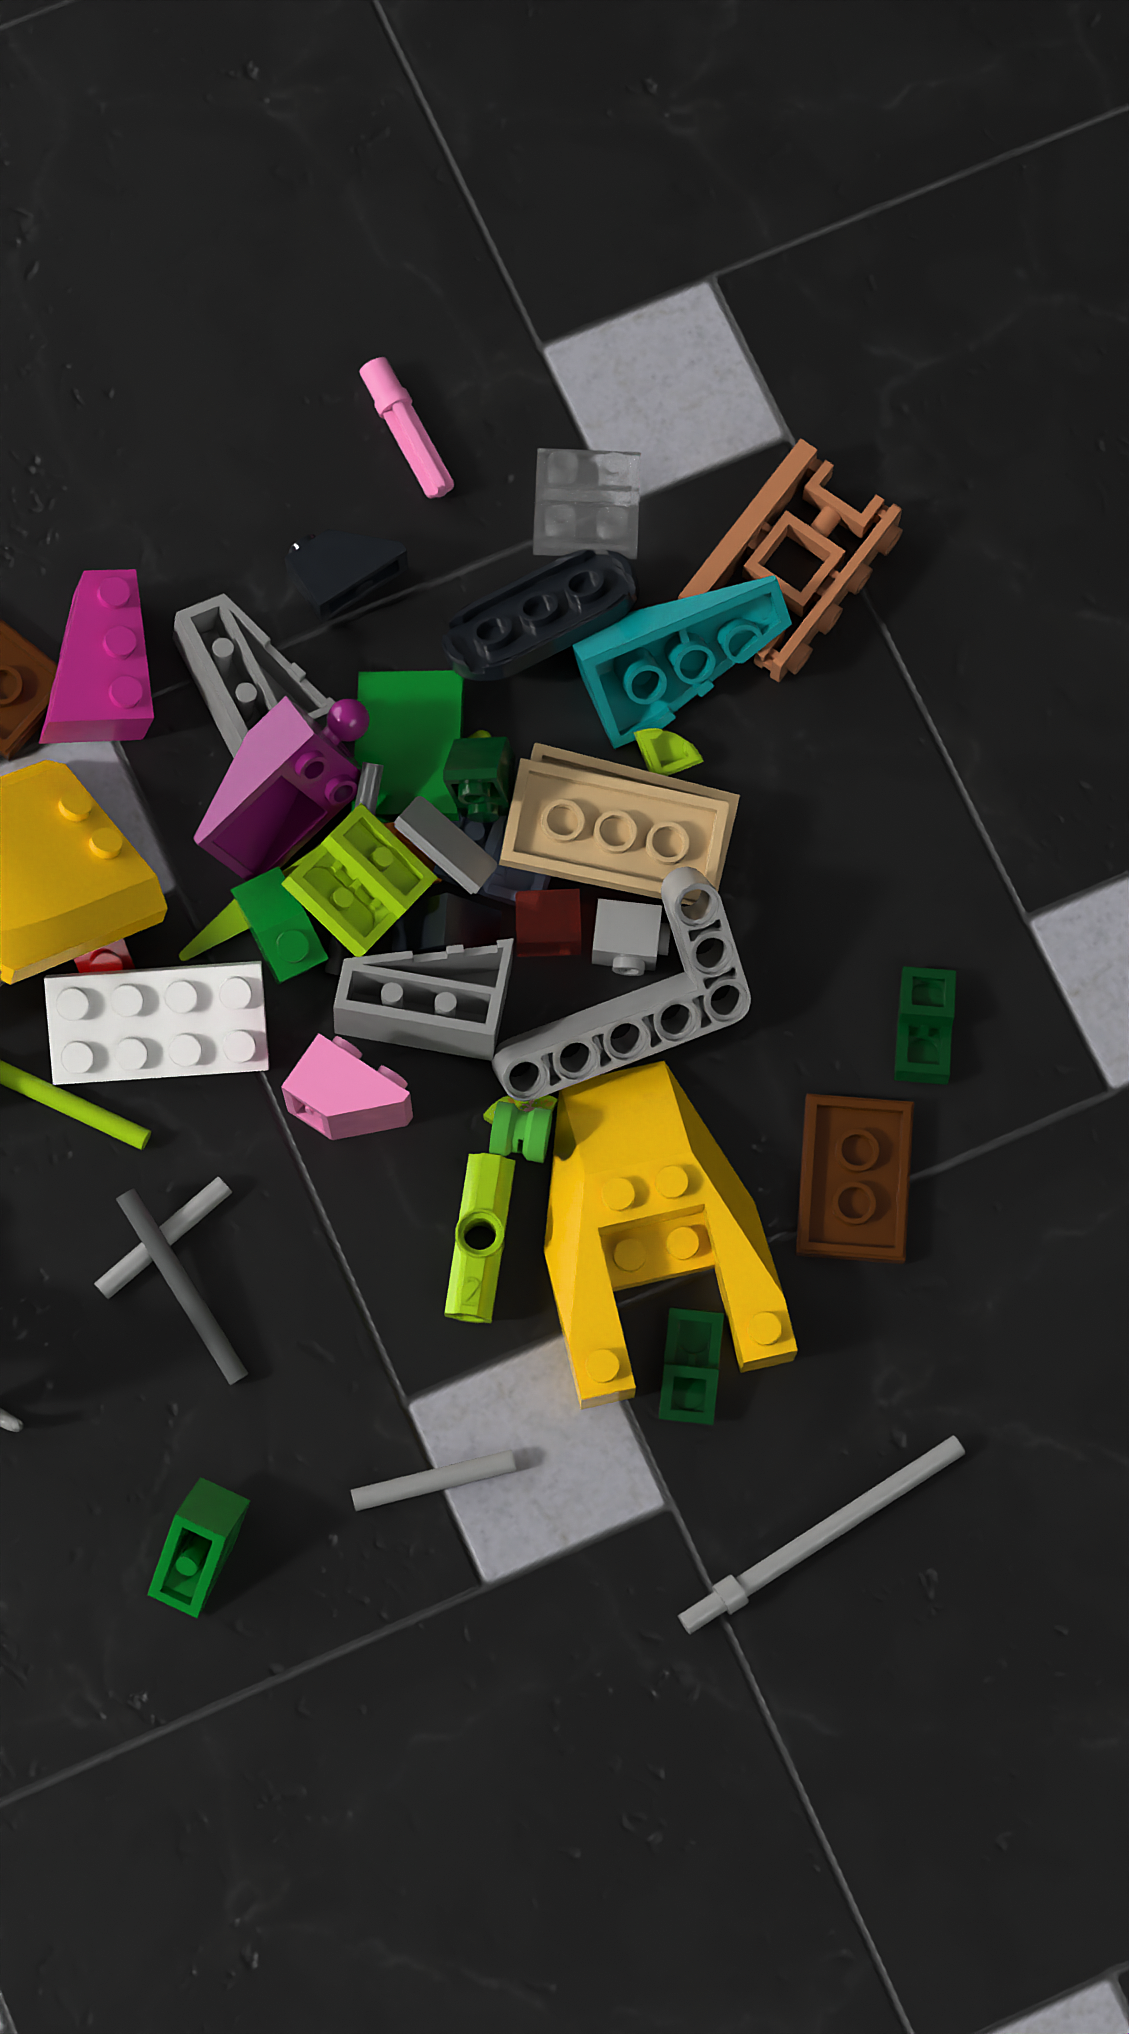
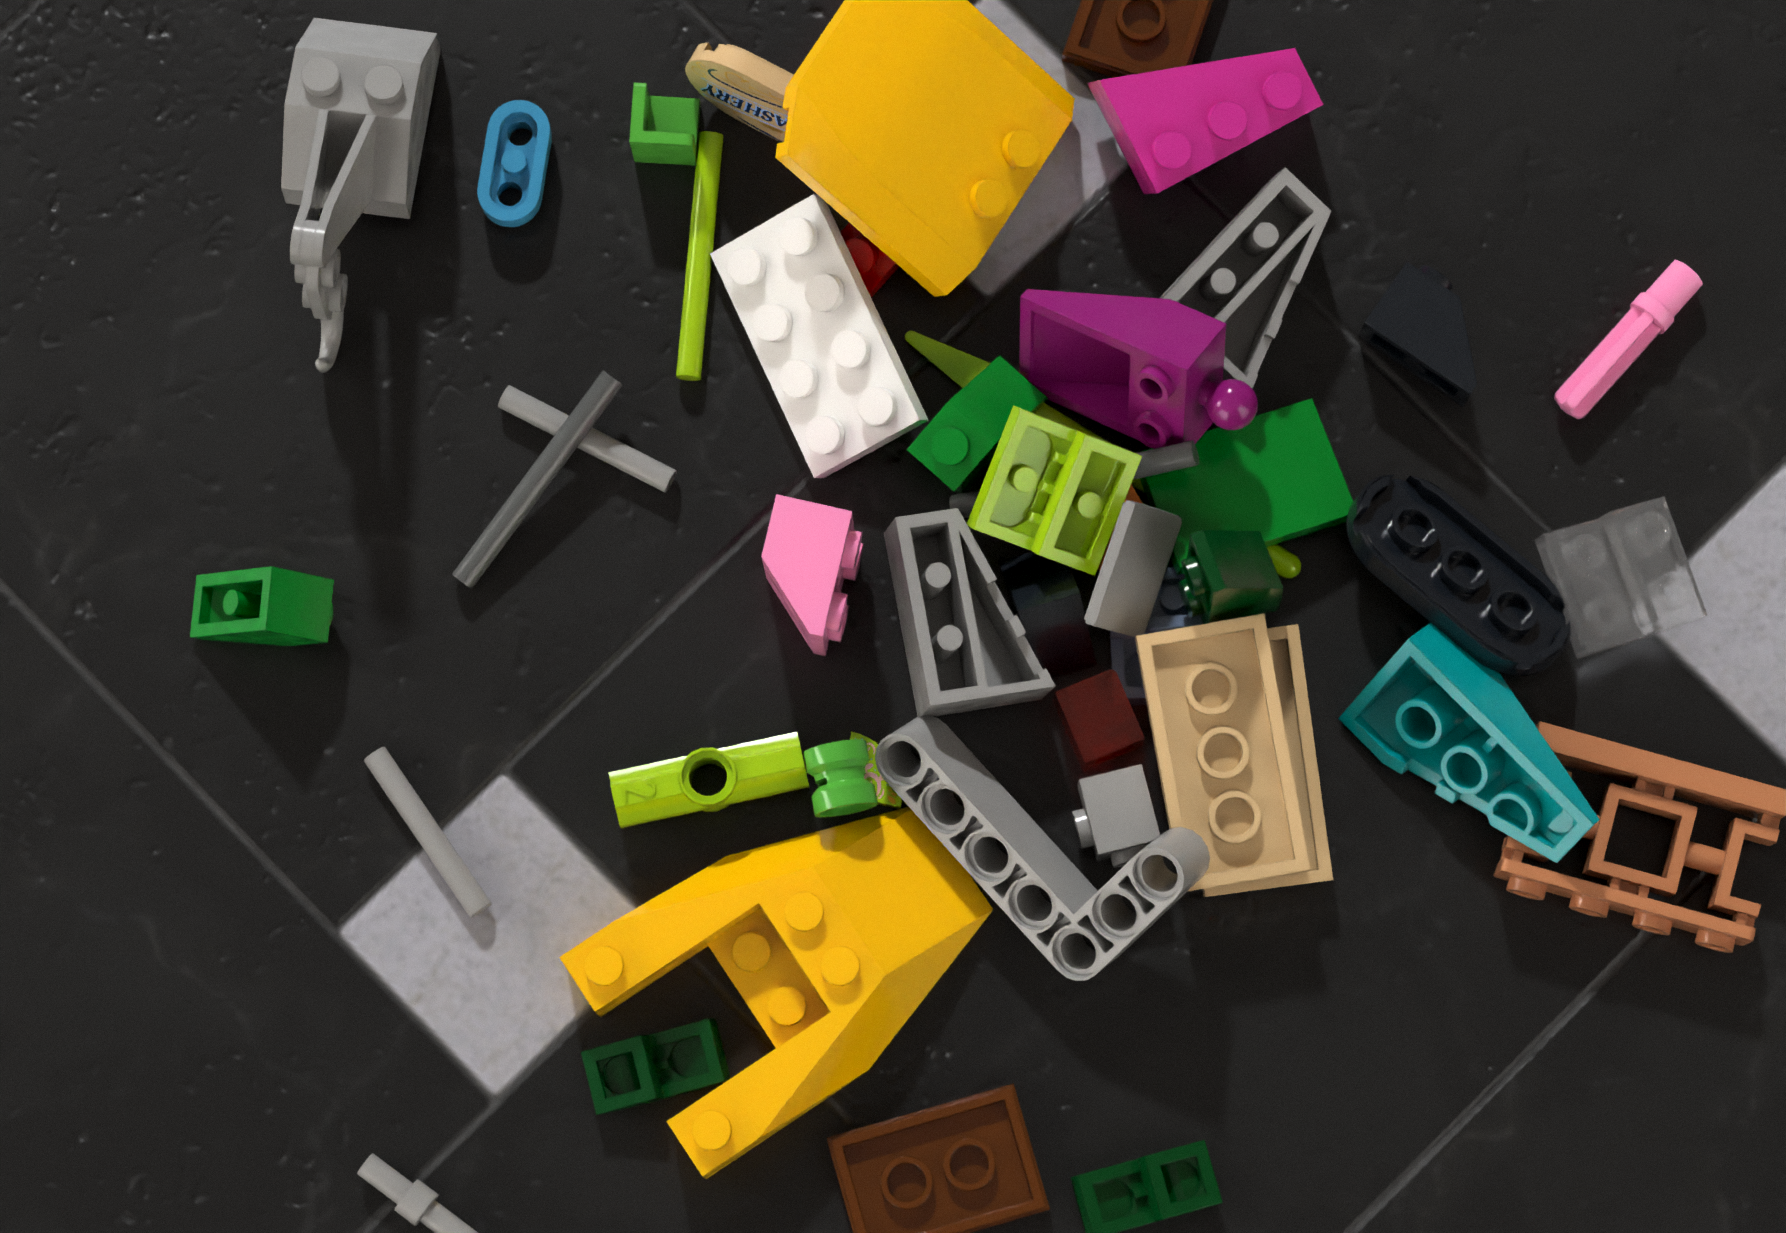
camera: 75 degrees right, 5 degrees up
(666, 751) = (1355, 778): lime tile -> none

